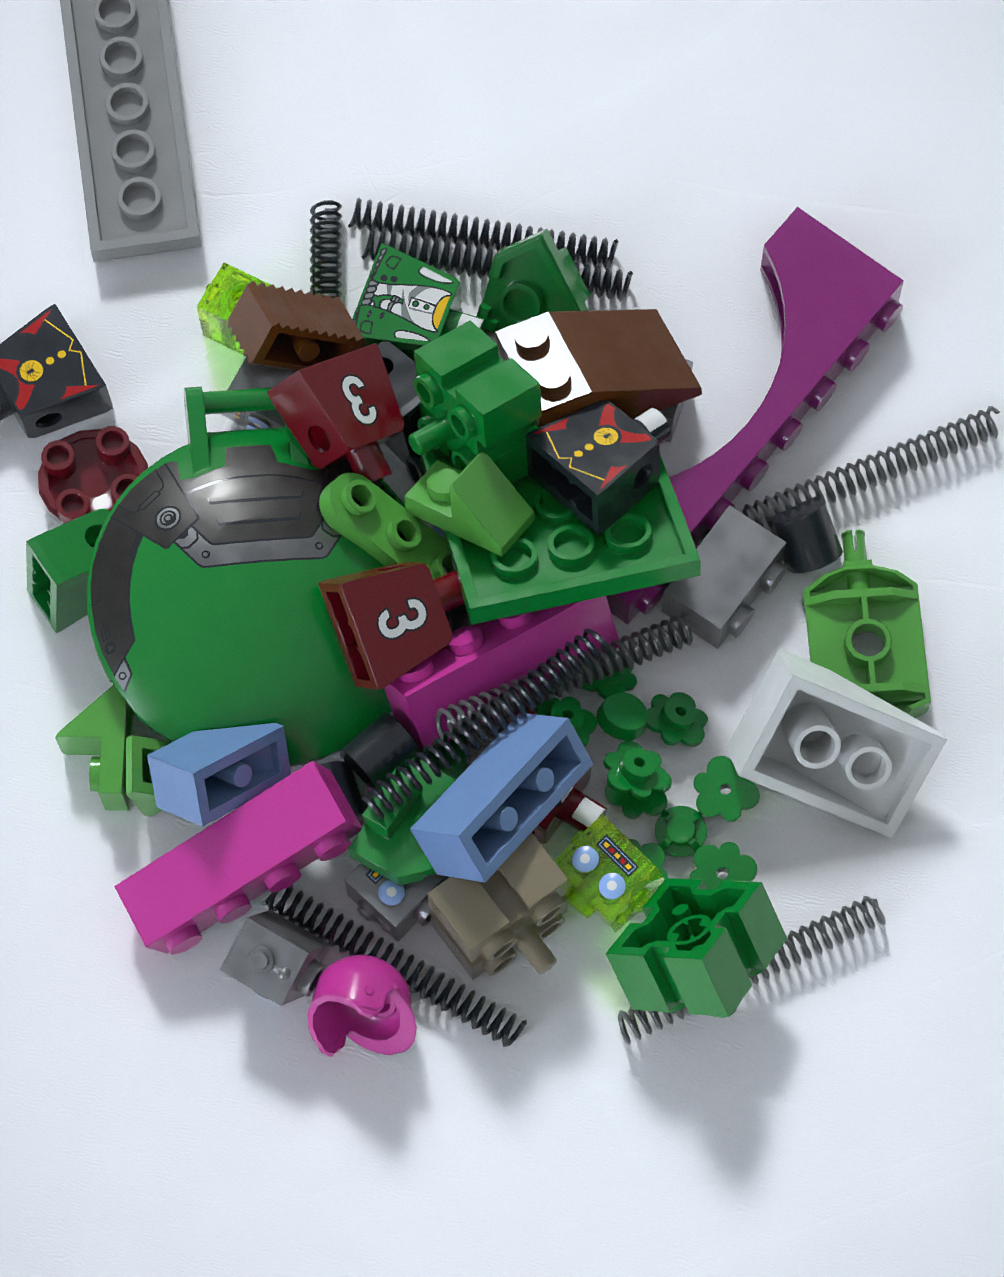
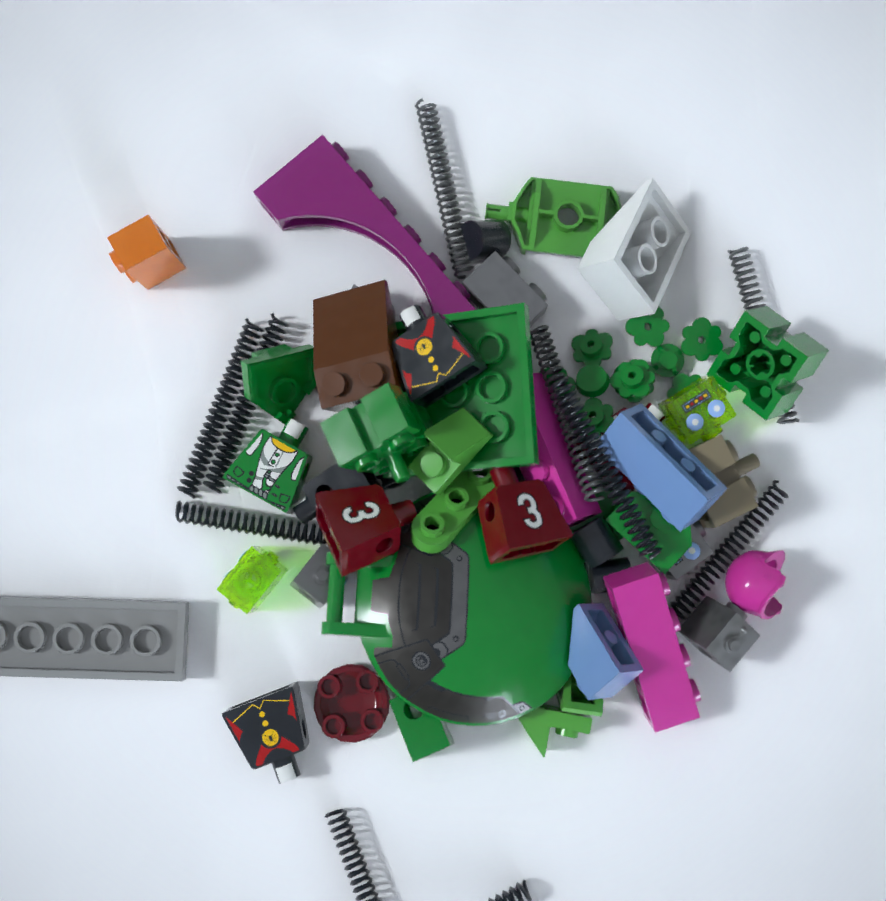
camera: 80 degrees left, 15 degrees up
(292, 327) = (286, 548): reddish brown brick -> none
(677, 90) = (145, 253): none -> orange brick

